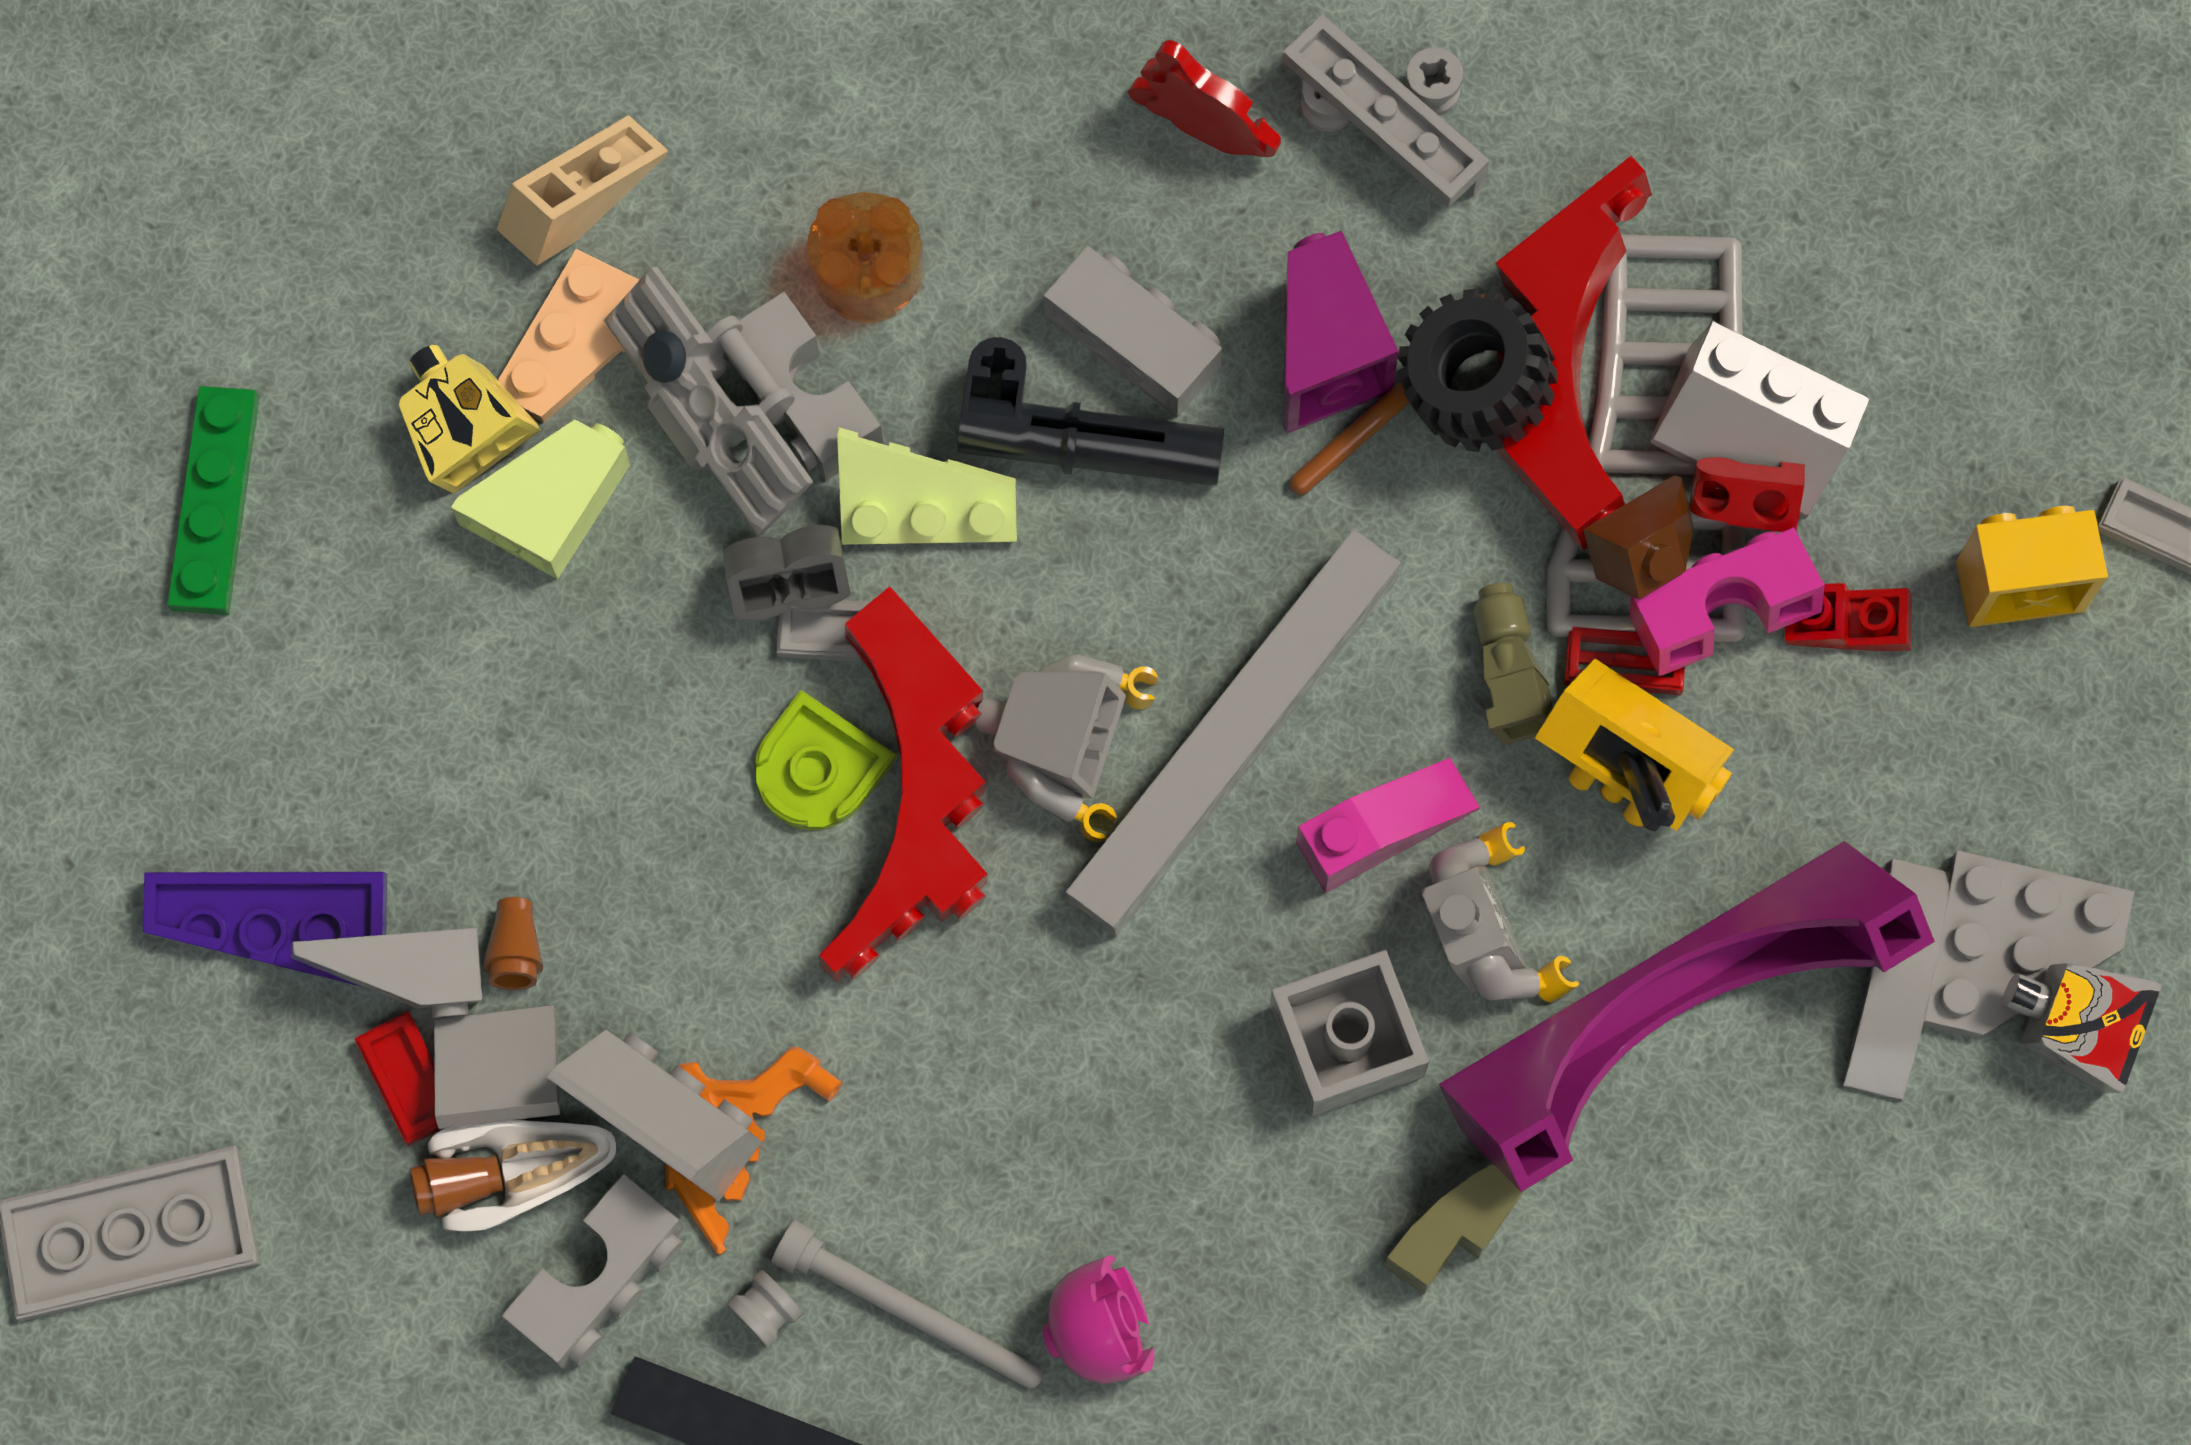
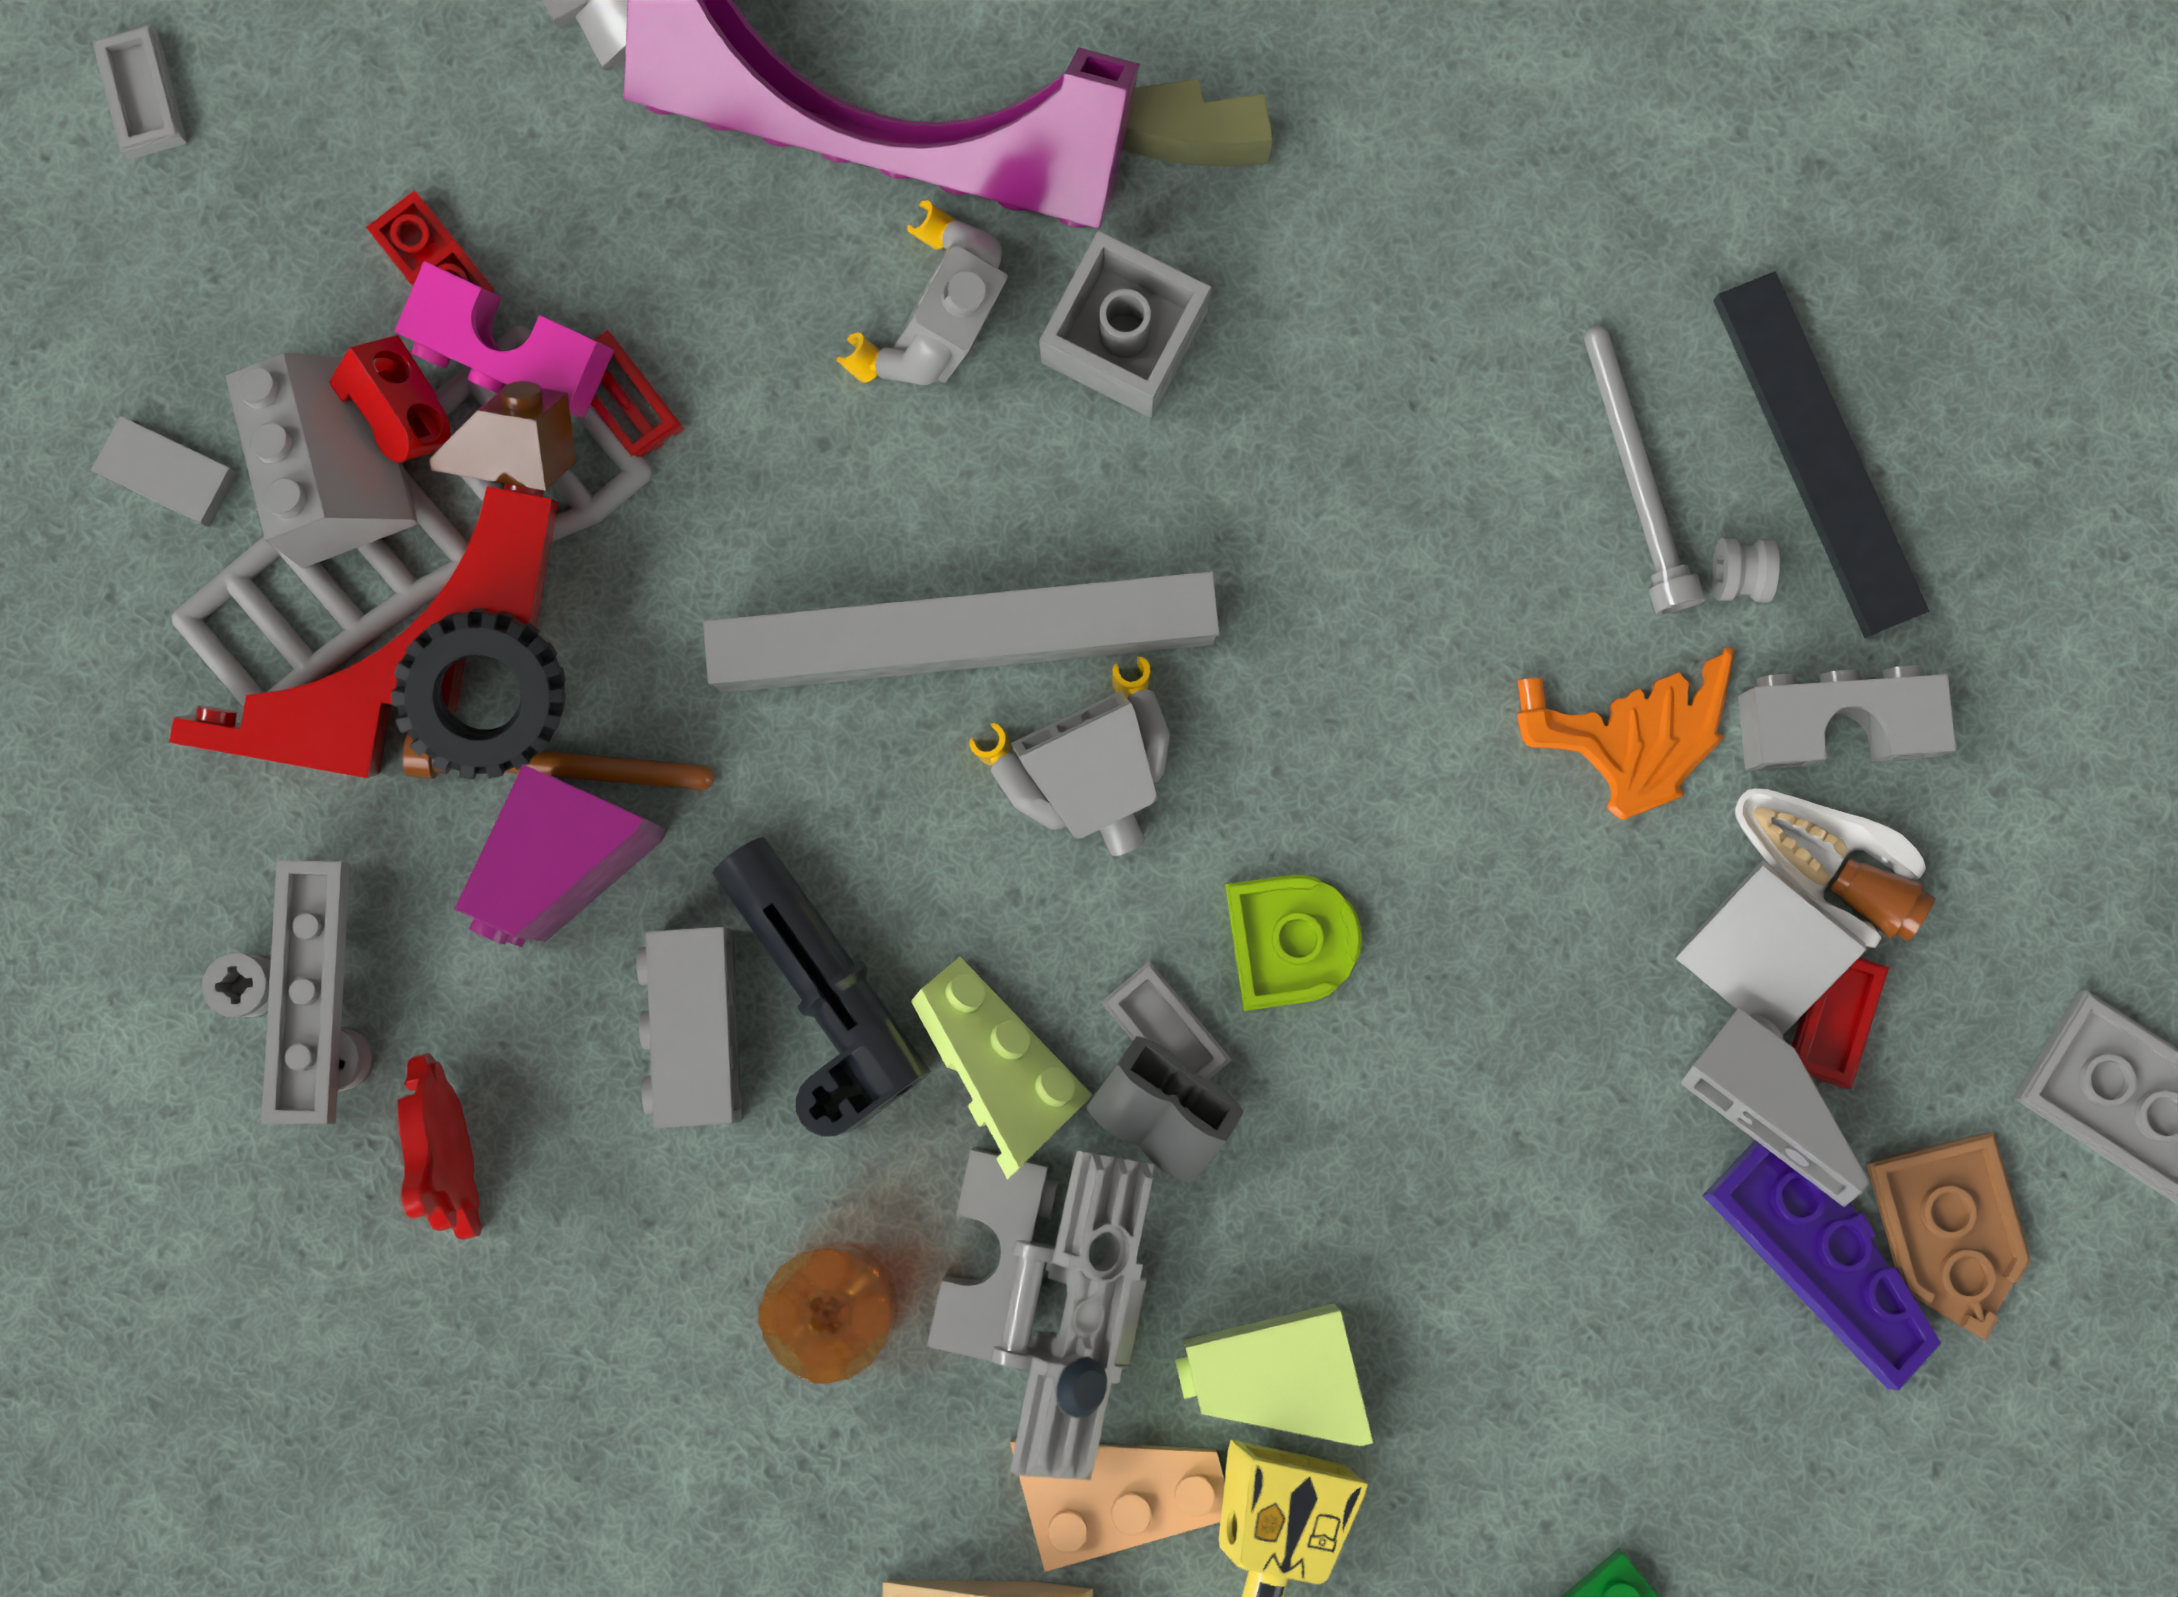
camera: 130 degrees left, 10 degrees up
(202, 1019) = (1953, 1227): none -> medium nougat tile
(513, 948) = (1662, 1035): dark orange cone -> none
(659, 1109) = (1695, 783): light grey slope -> none
(926, 863) = (1226, 818): red arch -> none
(1096, 1323) = (1523, 310): dark pink cylinder -> none
(1383, 822) = (928, 455): dark pink slope -> none
(1510, 668) = (709, 469): olive piece -> none
(1635, 749) = (695, 299): yellow piece -> none
(1851, 318) = (164, 471): none -> light grey tile
(2031, 566) = (260, 137): yellow brick -> none

